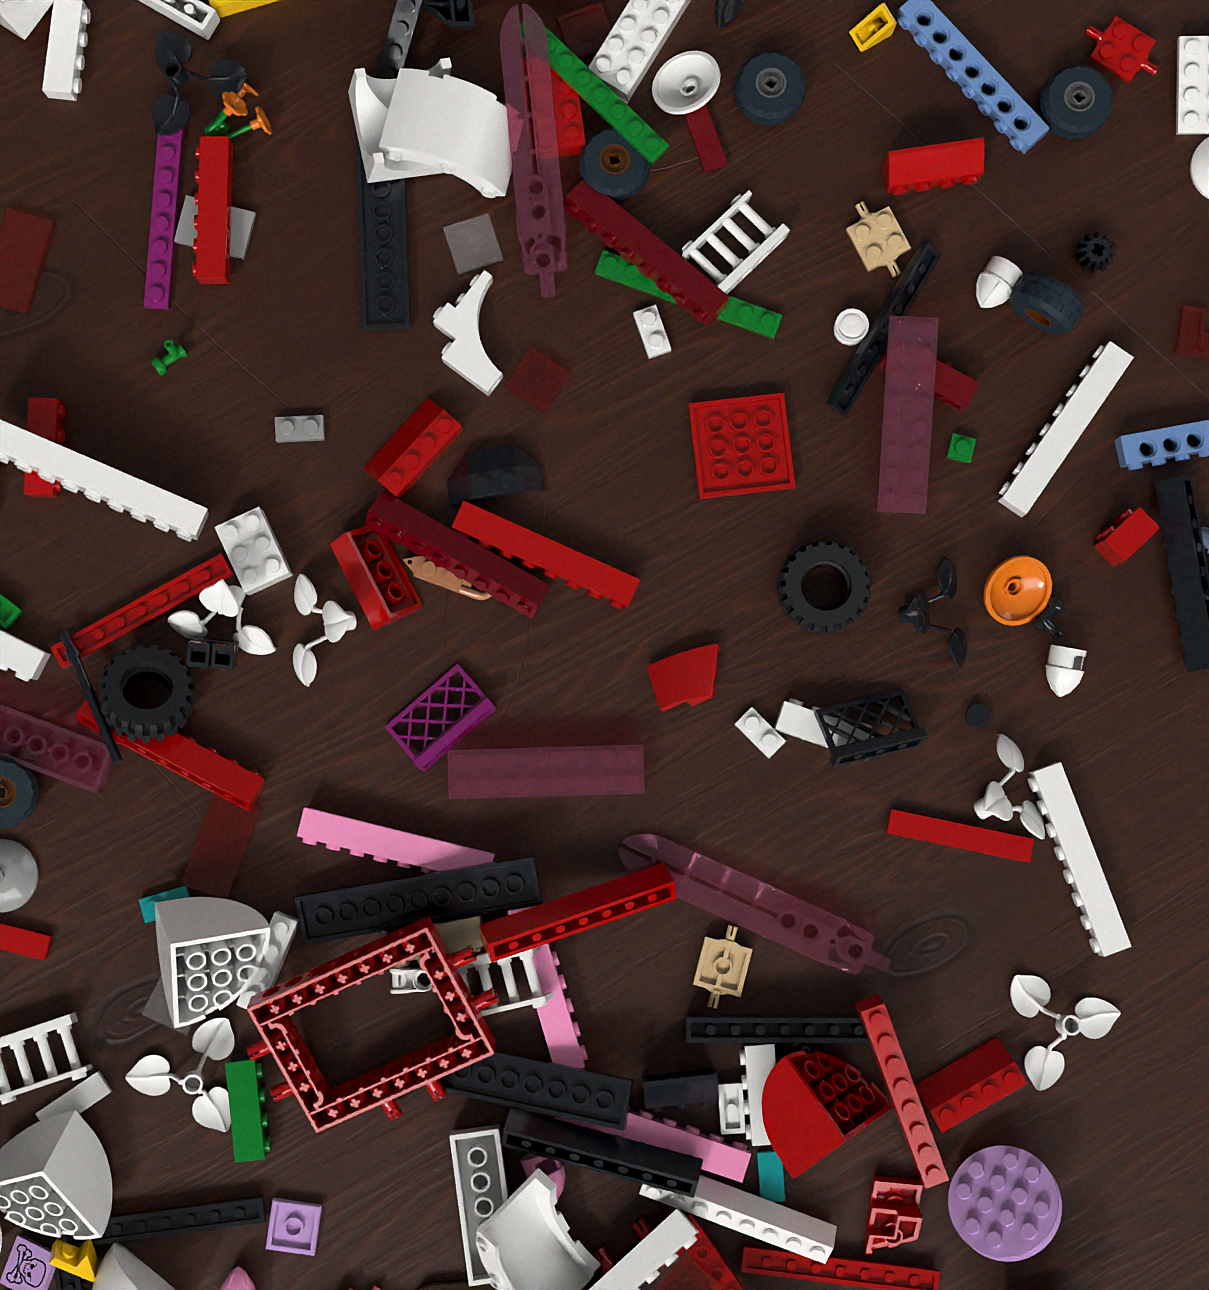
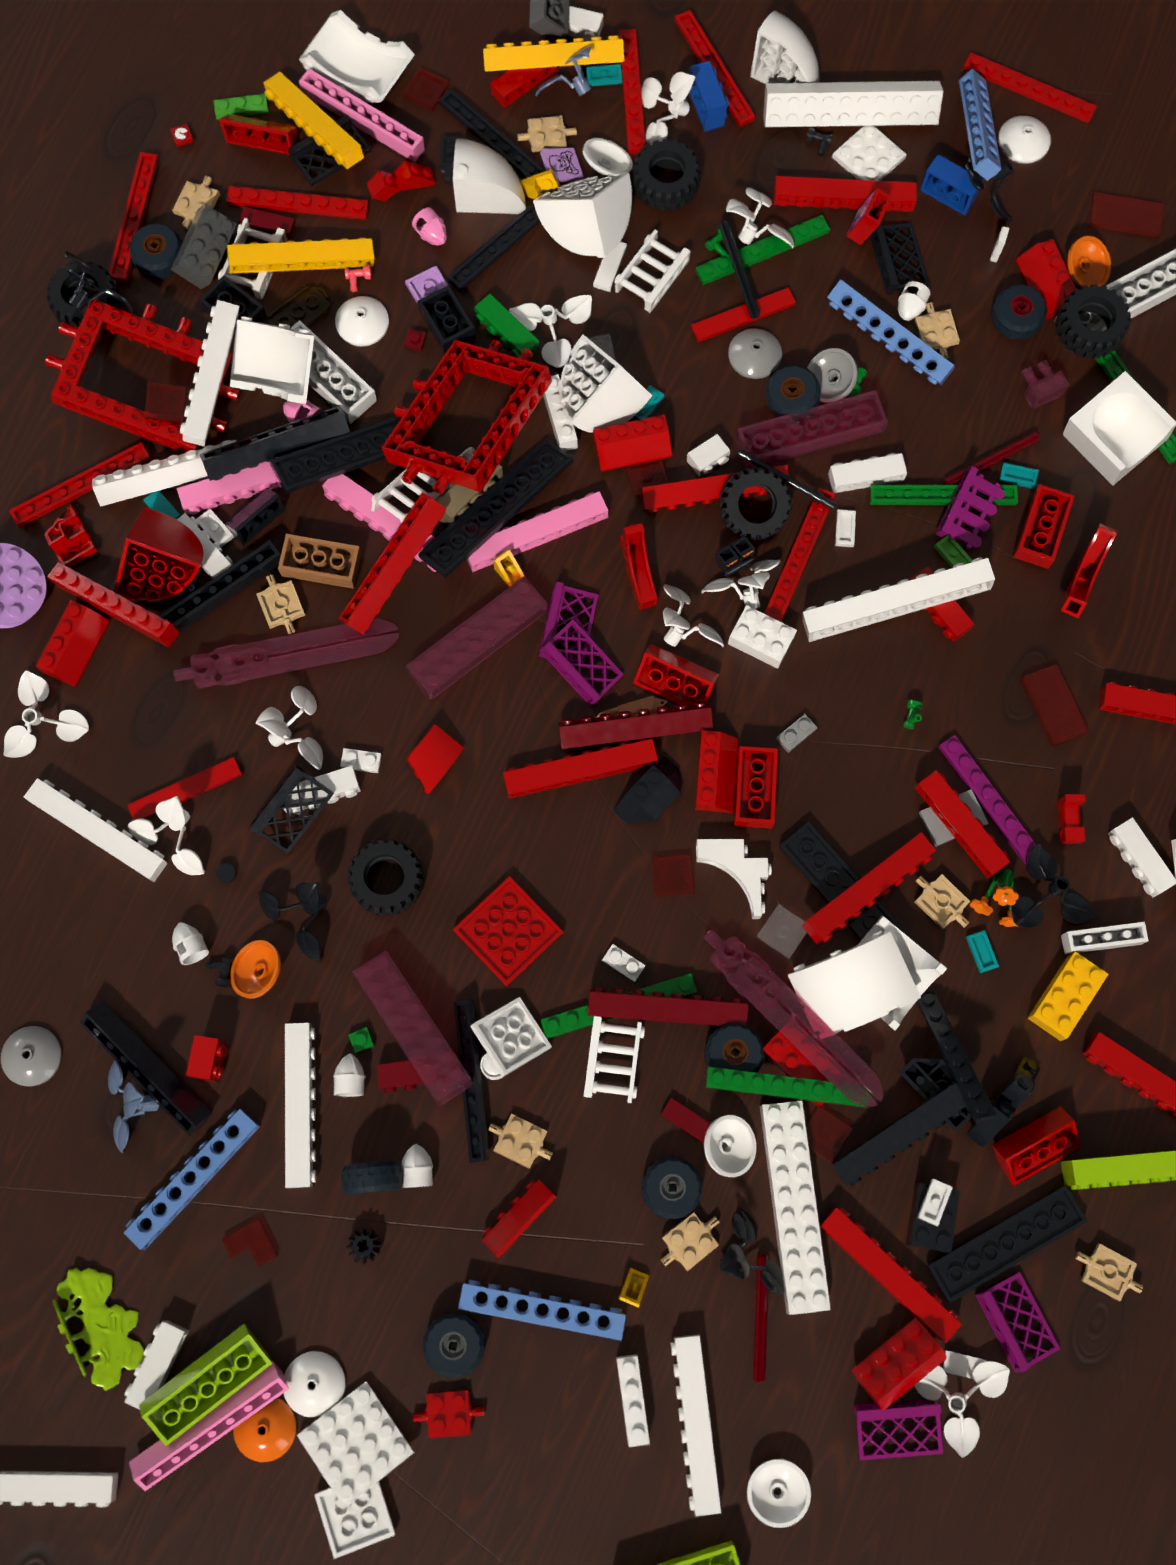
camera: 145 degrees right, 10 degrees down
(70, 605) = (845, 528): none -> white tile
(105, 136) = (1069, 819): none -> red piece
(148, 792) = (708, 456): none -> white brick
(218, 864) = (632, 443): none -> red slope
(295, 155) = (942, 901): none -> tan plate
(297, 82) = (982, 951): none -> teal tile
(305, 1168) = (446, 318): none -> black brick
(323, 718) = (637, 565): none -> red arch
(356, 1173) = (415, 339): none -> dark red plate
(358, 216) = (868, 888): none -> red brick
(387, 400) = (755, 787): none -> red brick
(401, 1226) = (362, 329): none -> white dish
(456, 821) = (508, 568): none -> yellow slope
(478, 653) = (573, 675): none -> magenta fence
(648, 982) = (320, 561): none -> medium nougat brick
(788, 31) = (690, 1241): none -> tan plate
(816, 338) = (511, 1036): none -> white plate
(826, 818) = (274, 722): none -> white plant
(1000, 416) = (349, 1077): none -> white helmet

